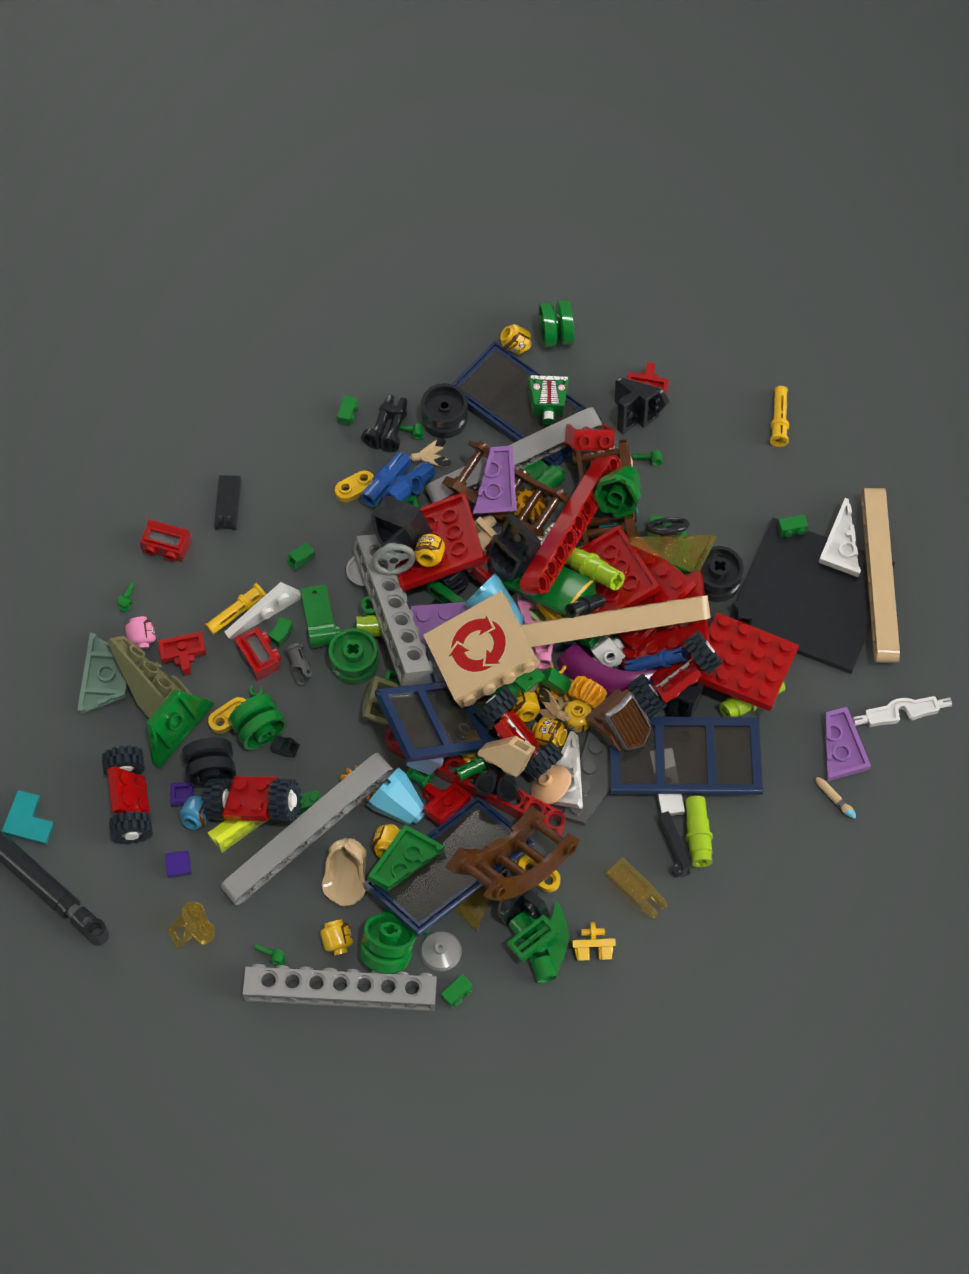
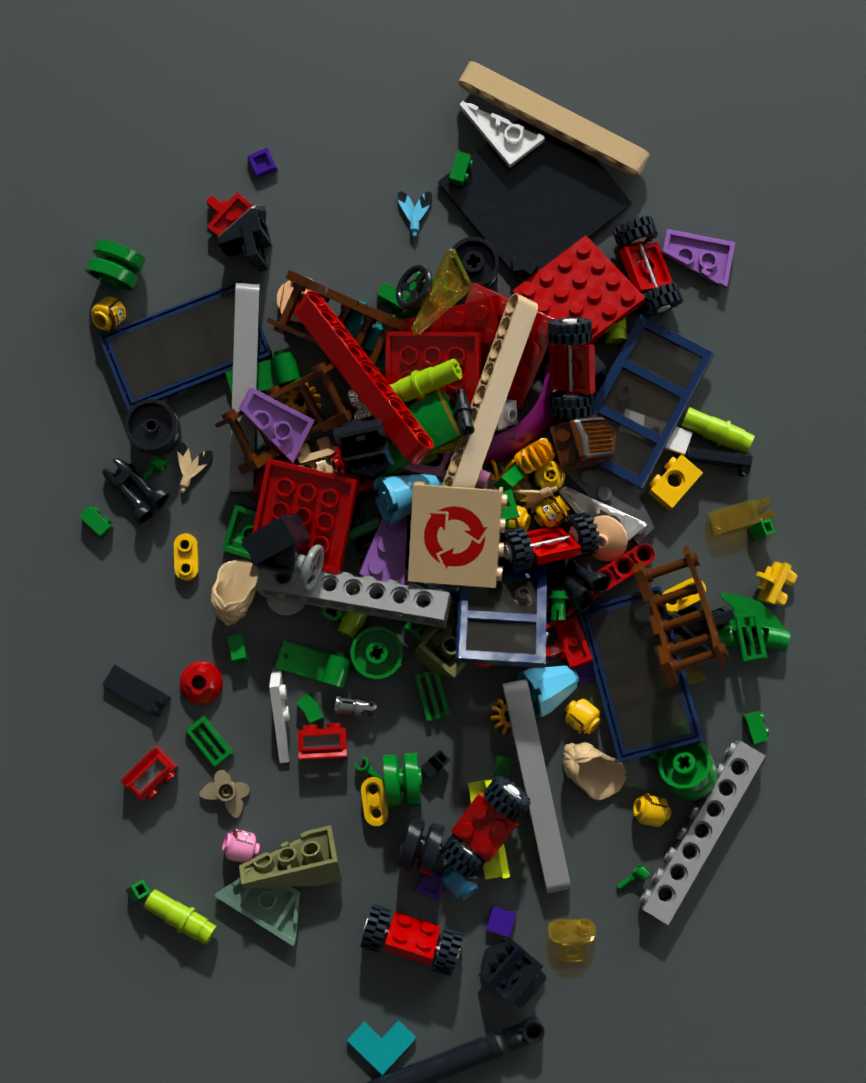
camera: 60 degrees left, 20 degrees up
(60, 617) = (180, 917): none -> lime piece
(61, 577) = (133, 894): none -> green piece
(124, 602) = (194, 845): green hand -> none
(136, 892) = (512, 972): none -> black piece
(173, 723) = (358, 858): green wing -> none
(179, 606) = (227, 792): none -> dark tan animal
(182, 650) = (280, 813): red hinge -> none
(207, 588) = (222, 757): none -> green tile
(243, 604) = (260, 729): yellow pin -> none
(260, 552) = (213, 685): none -> red piece
(339, 710) = (427, 676): none -> green tile
(342, 528) = (234, 590): none -> tan hair
(385, 478) = (198, 523): blue piece -> none
(404, 857) = (615, 713): green wing -> none
(412, 482) = (220, 505): blue piece -> none
(426, 825) = (585, 673): none -> dark purple tile
(429, 550) = (320, 528): yellow head -> none
(440, 950) = (712, 719): light grey piece -> none
(508, 753) = (570, 566): tan slope -> none
(547, 396) = (195, 319): torso -> none
(589, 438) = (273, 310): red window -> none
(619, 492) = (352, 309): green cone -> none
(633, 903) = (761, 529): none -> green piece
(639, 828) = (685, 472): none -> yellow brick
(655, 457) = (312, 253): green hand -> none
(663, 658) = (548, 368): blue pin -> none
(705, 389) = (262, 163): none -> dark purple tile
(736, 515) = (416, 213): none -> medium azure piece
(779, 424) = (342, 116): yellow pin -> none
(803, 704) = (647, 265): none -> plate
(836, 798) = (746, 290): tan piece -> none
(913, 708) = (689, 193): white piece -> none

